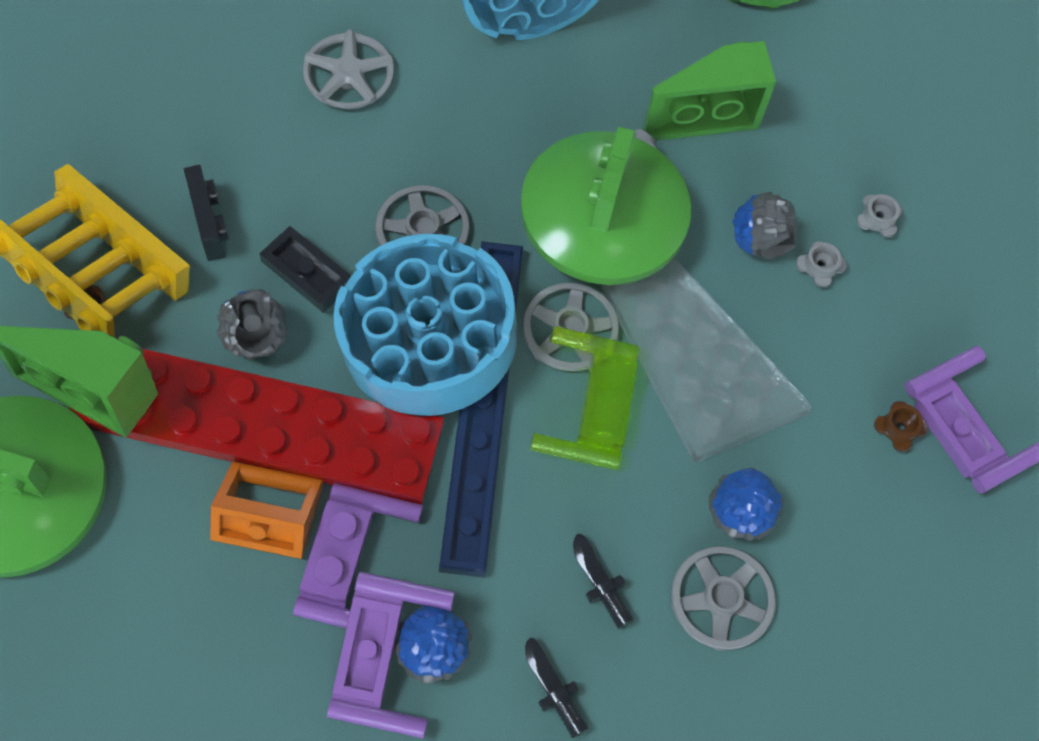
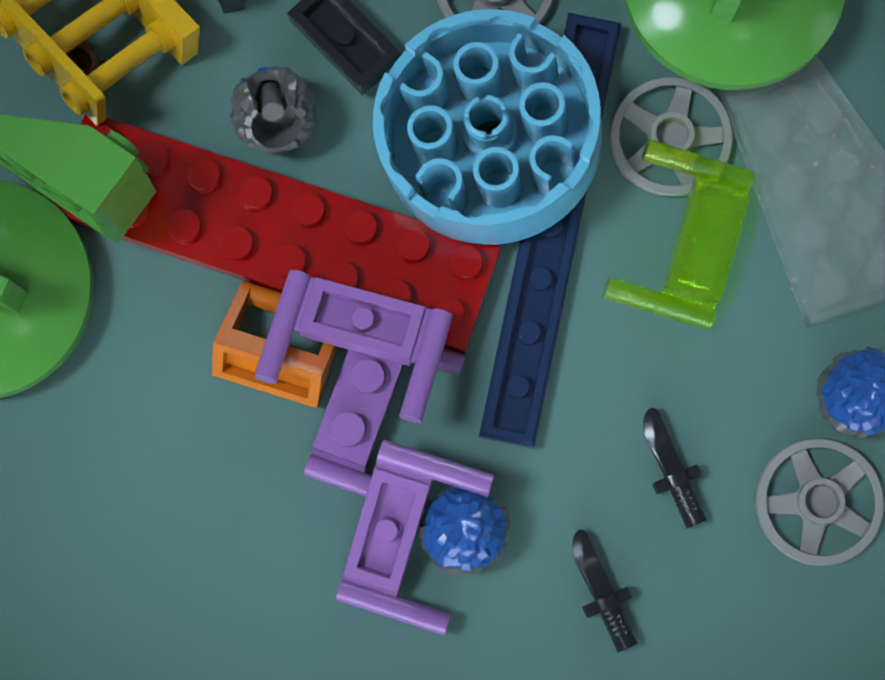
camera: 20 degrees right, 15 degrees up
(332, 481) = (360, 324): none -> medium lavender plate

